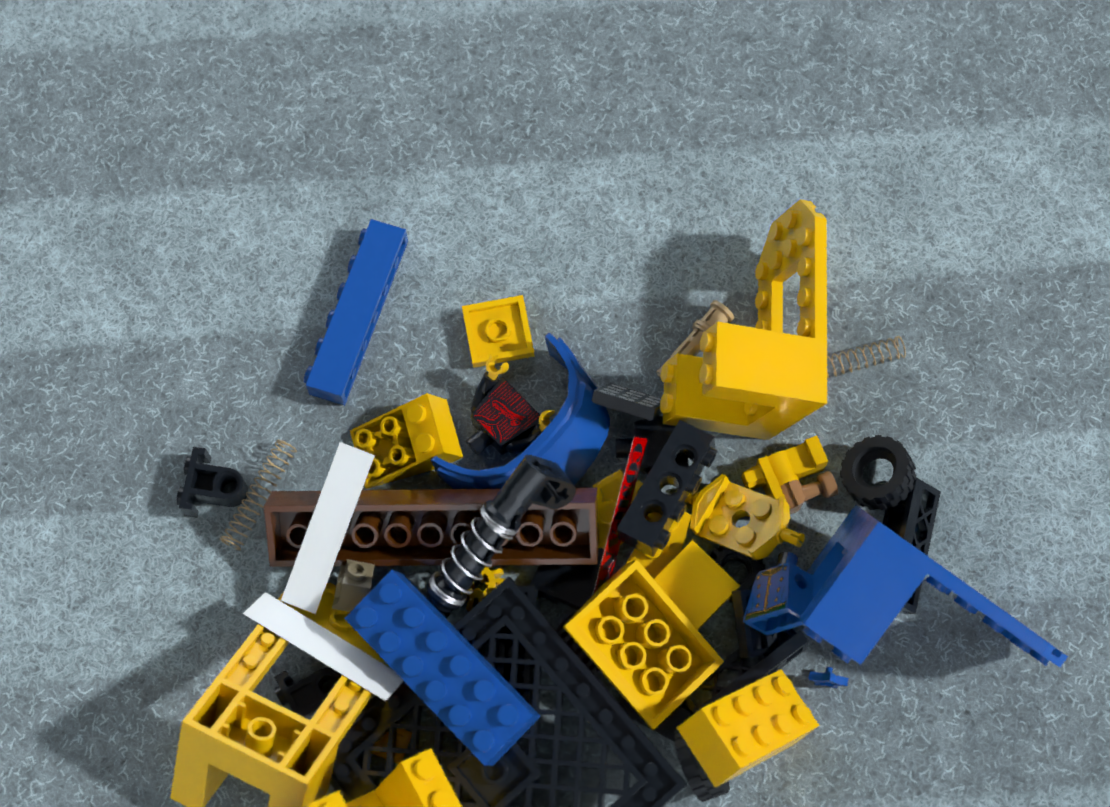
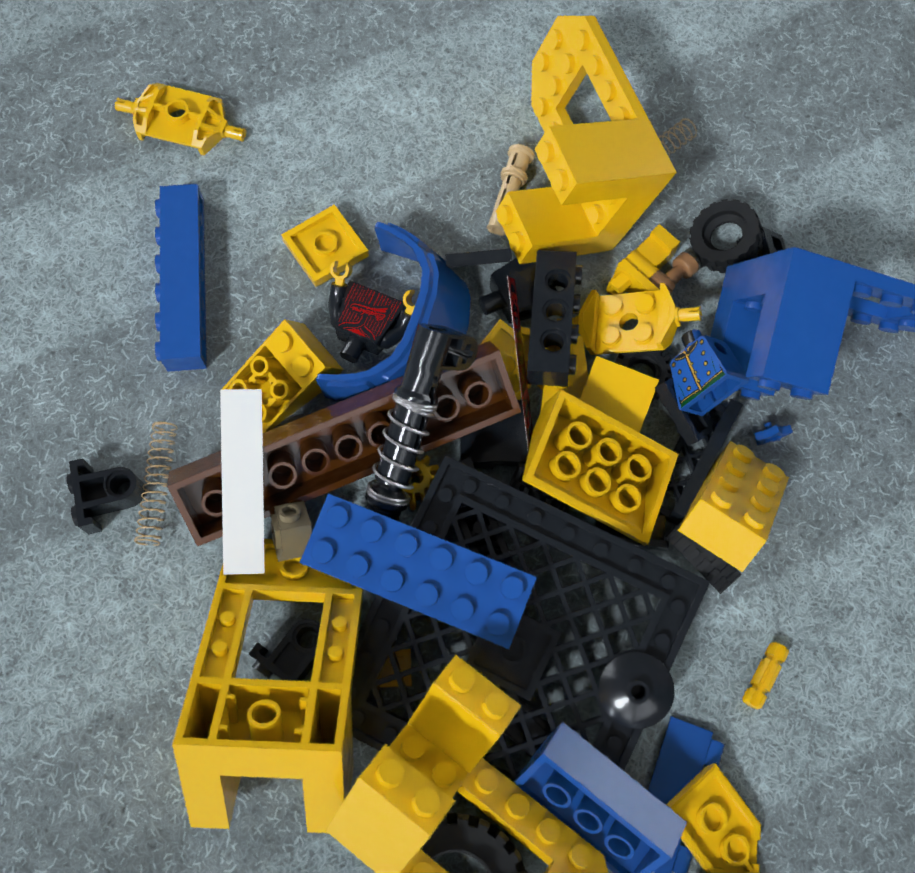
camera: 30 degrees left, 0 degrees up
(324, 646) = (289, 600): white sticker -> none
(431, 170) = (199, 127): none -> yellow plate

